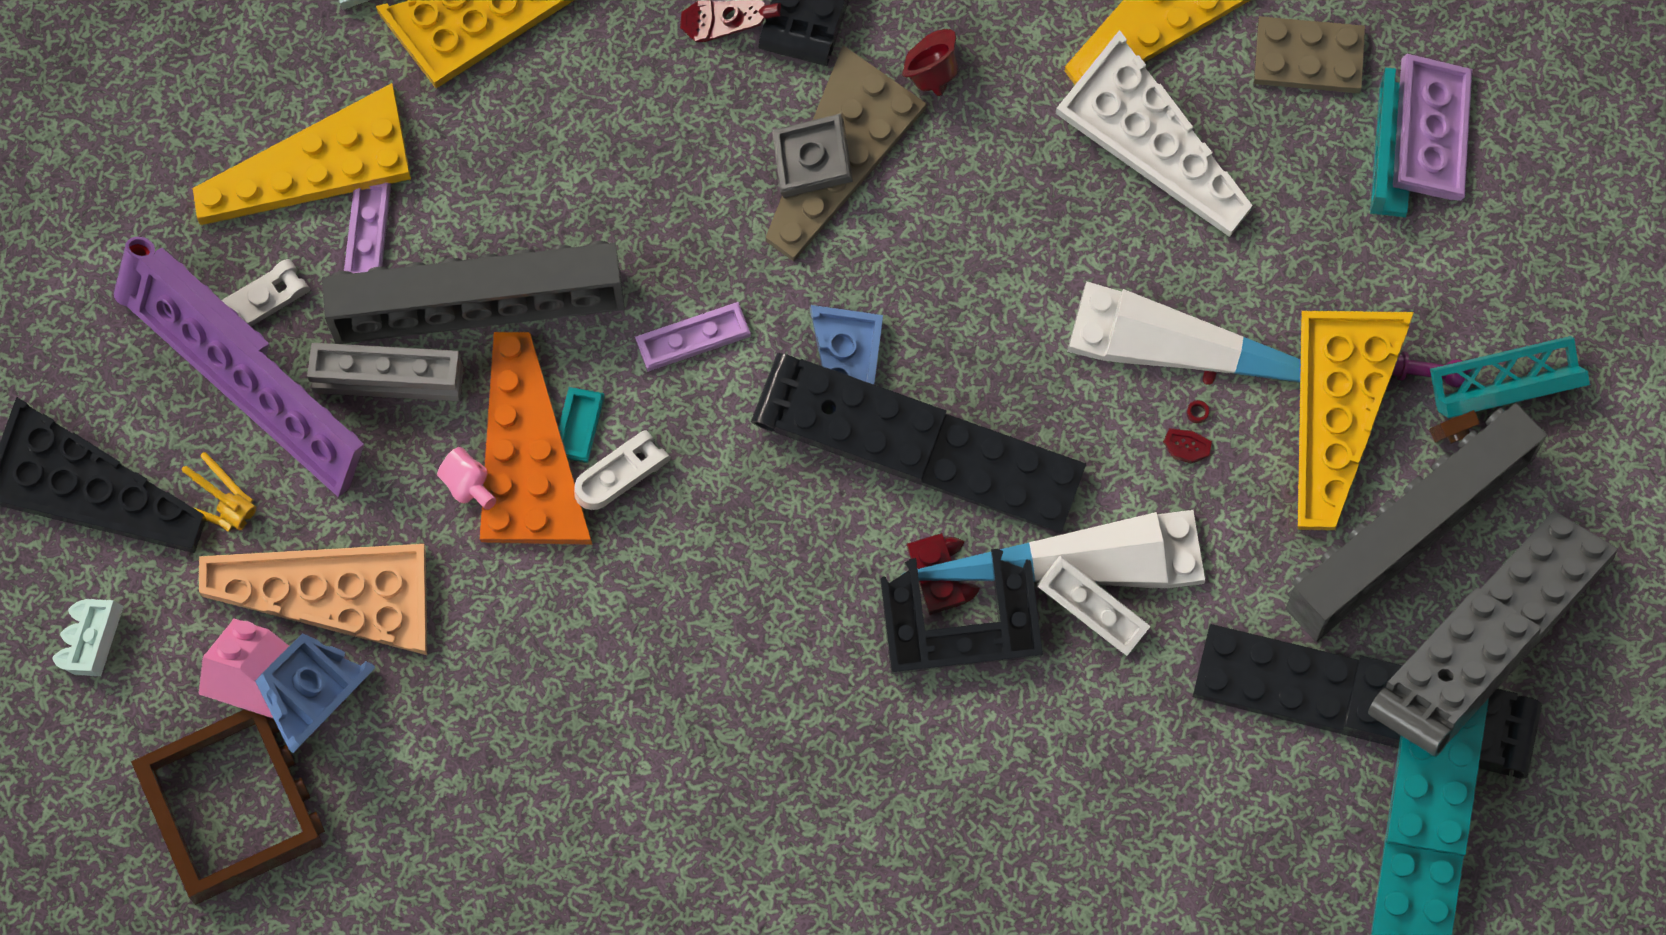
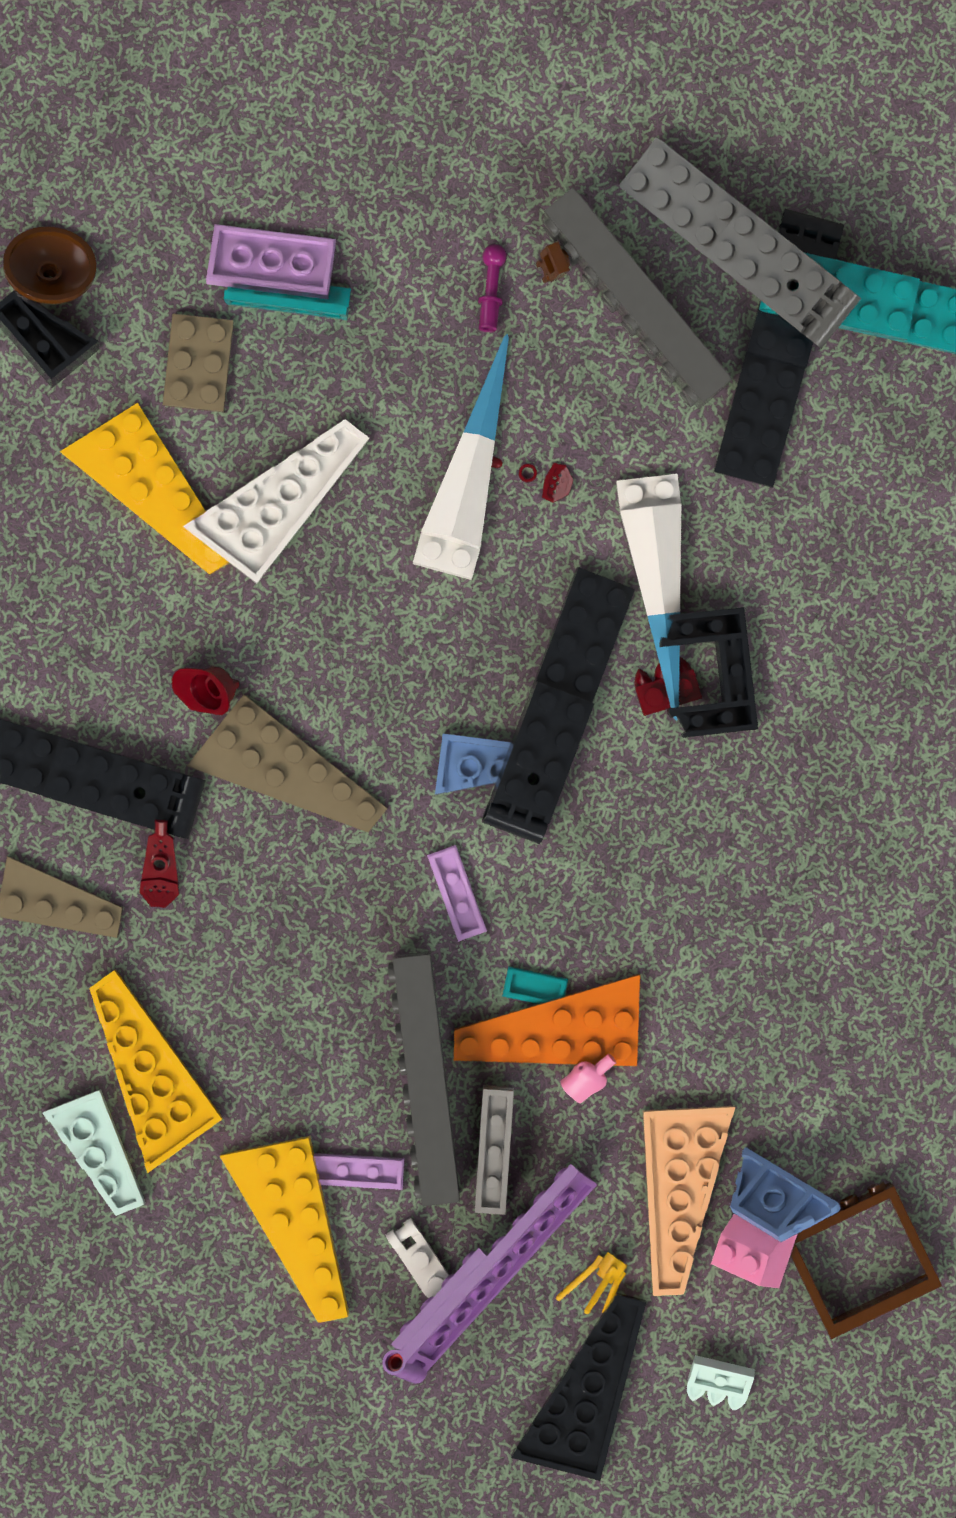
camera: 90 degrees left, 20 degrees up
(619, 472) = (581, 953): white plate -> none
(812, 155) = (297, 792): dark grey tile -> none
(1093, 605) = (702, 565): white plate -> none
(1342, 386) = (514, 352): yellow wing -> none
(1510, 390) = (512, 213): teal fence -> none

